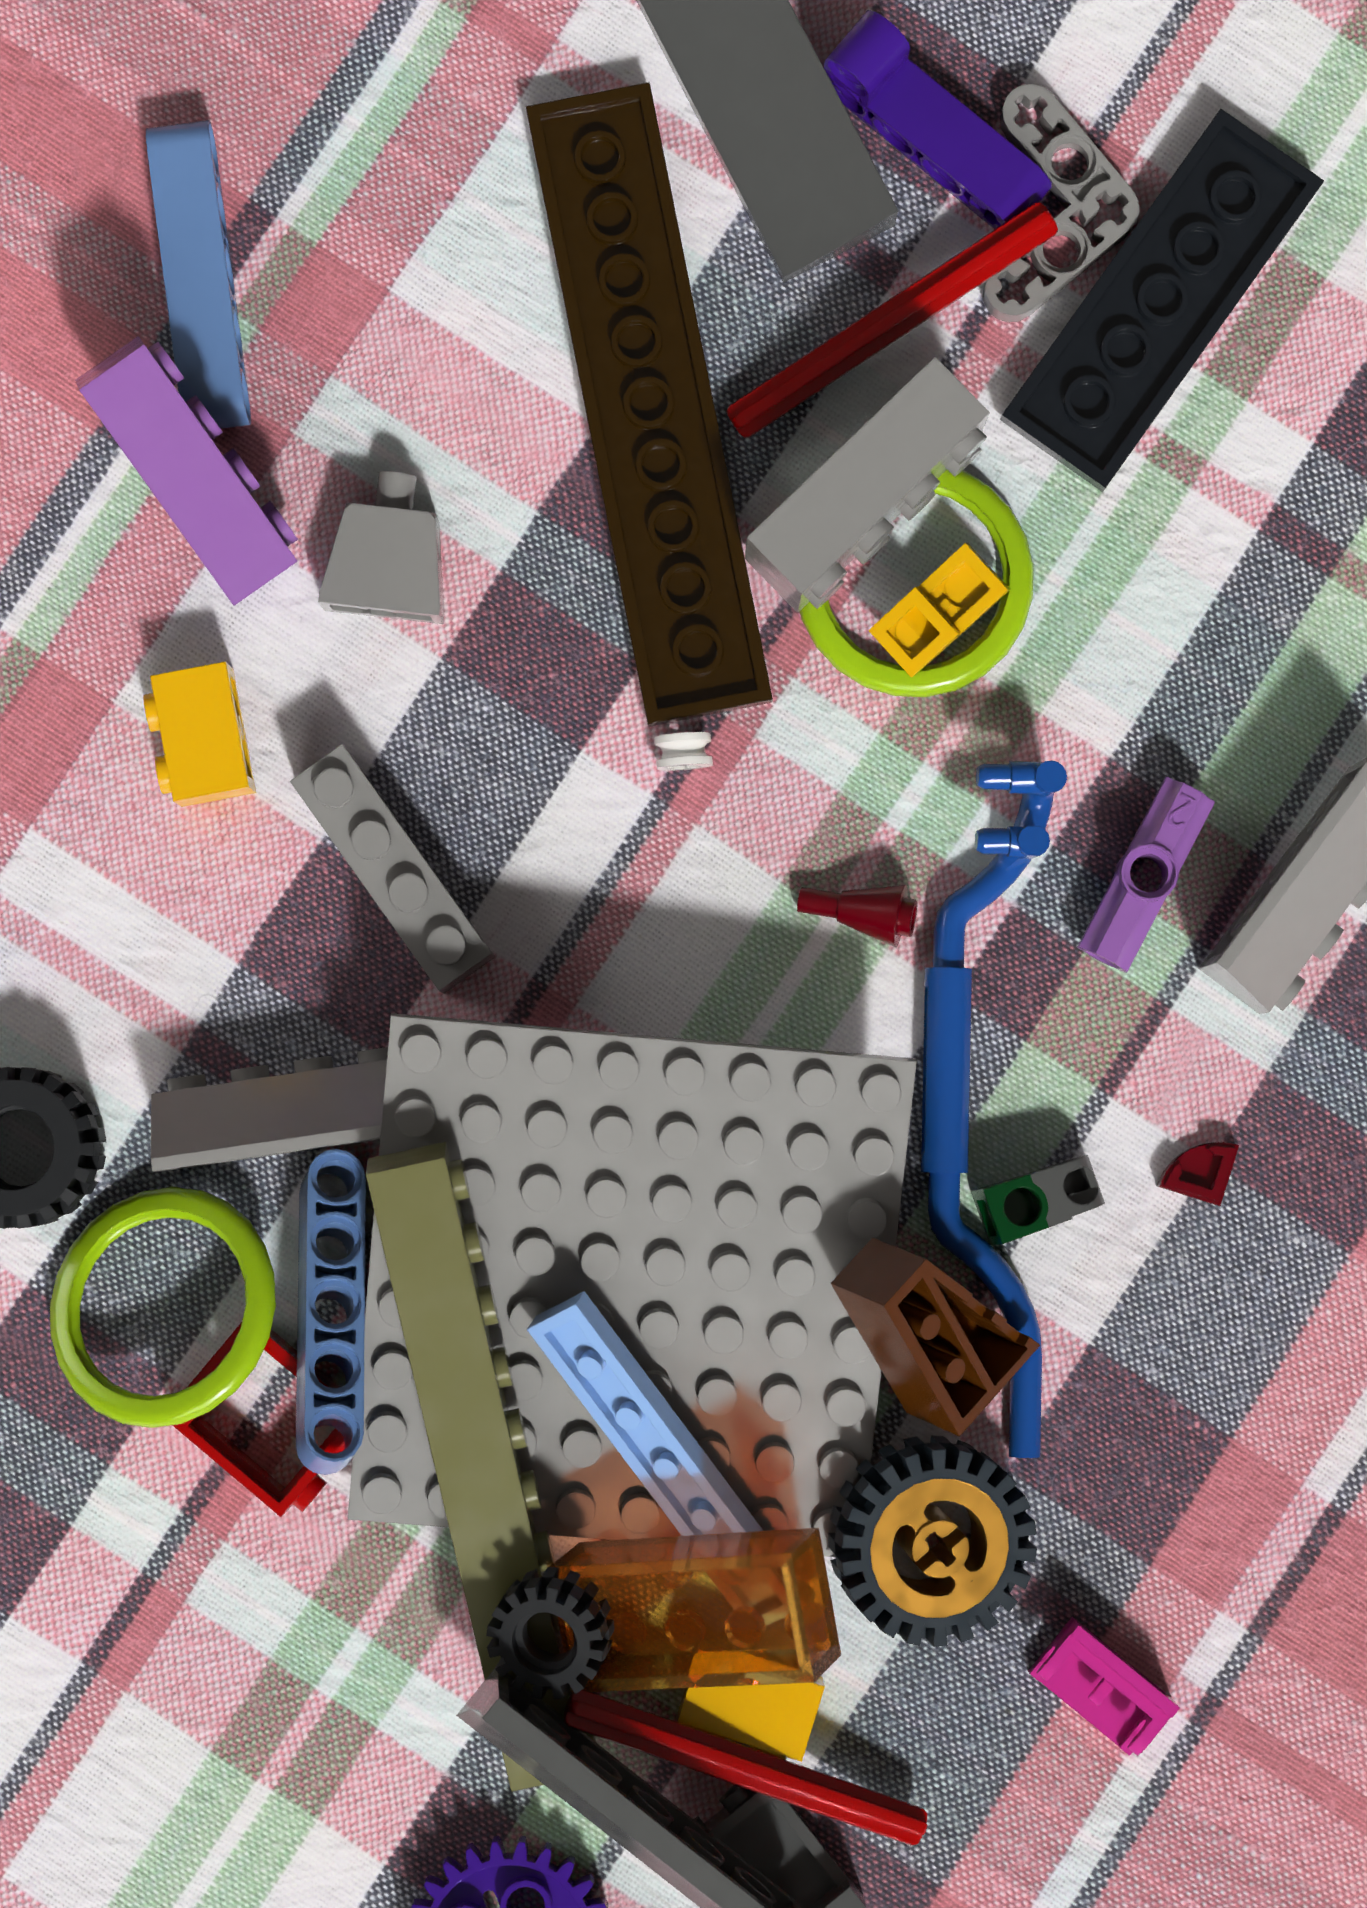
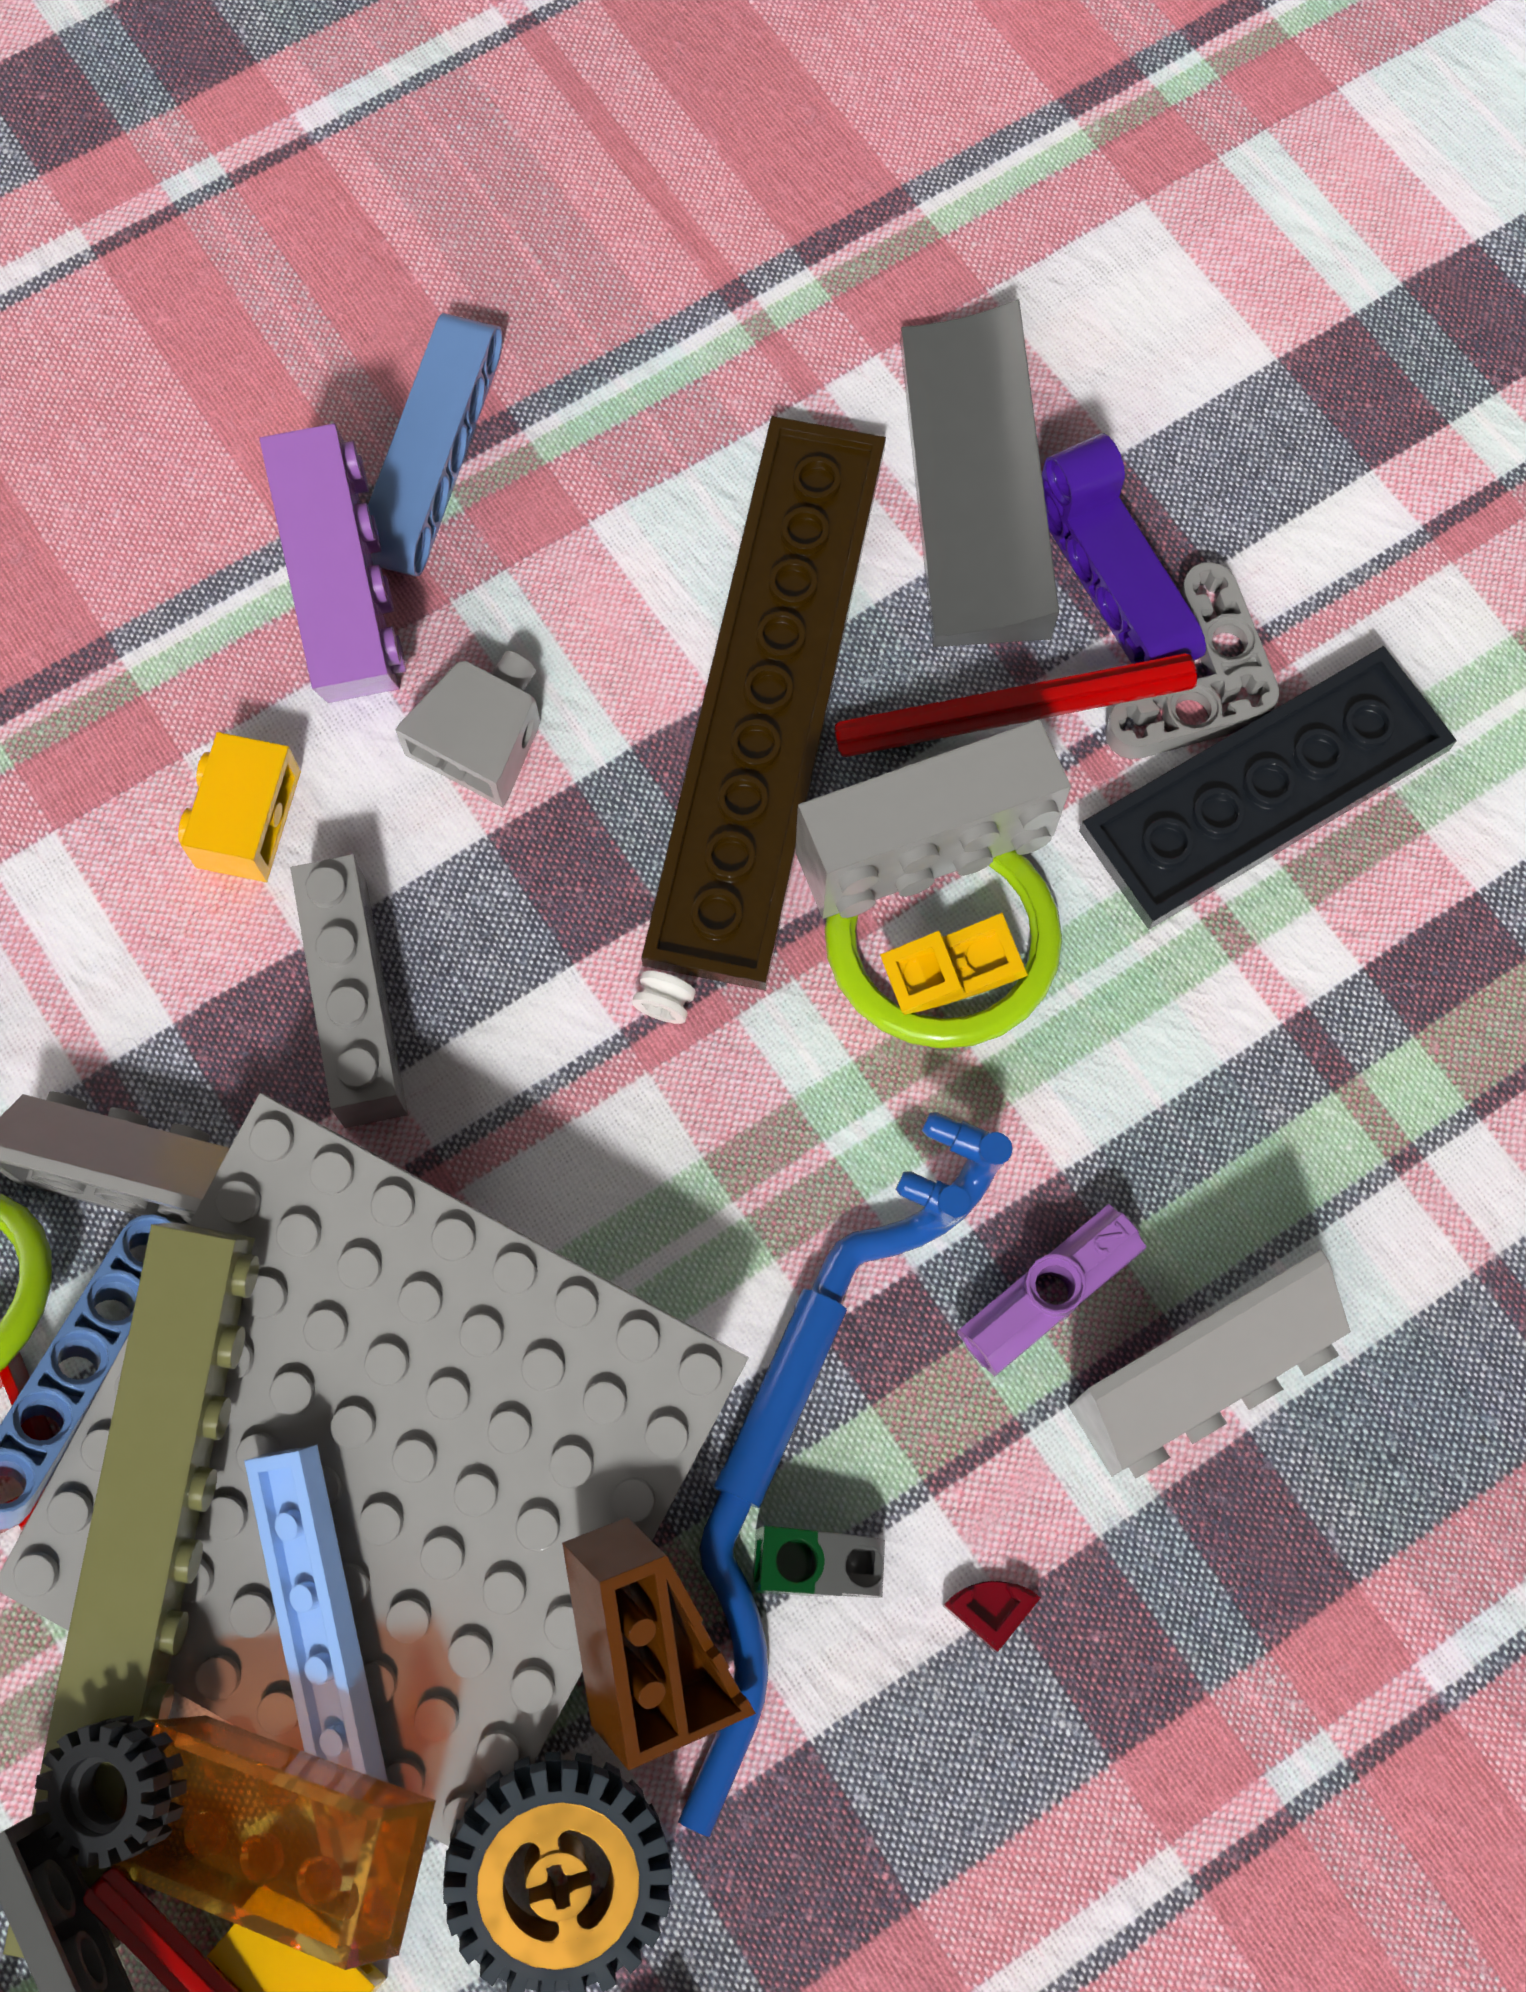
camera: 20 degrees right, 15 degrees down
(877, 911) = (779, 1218): dark red cone -> none

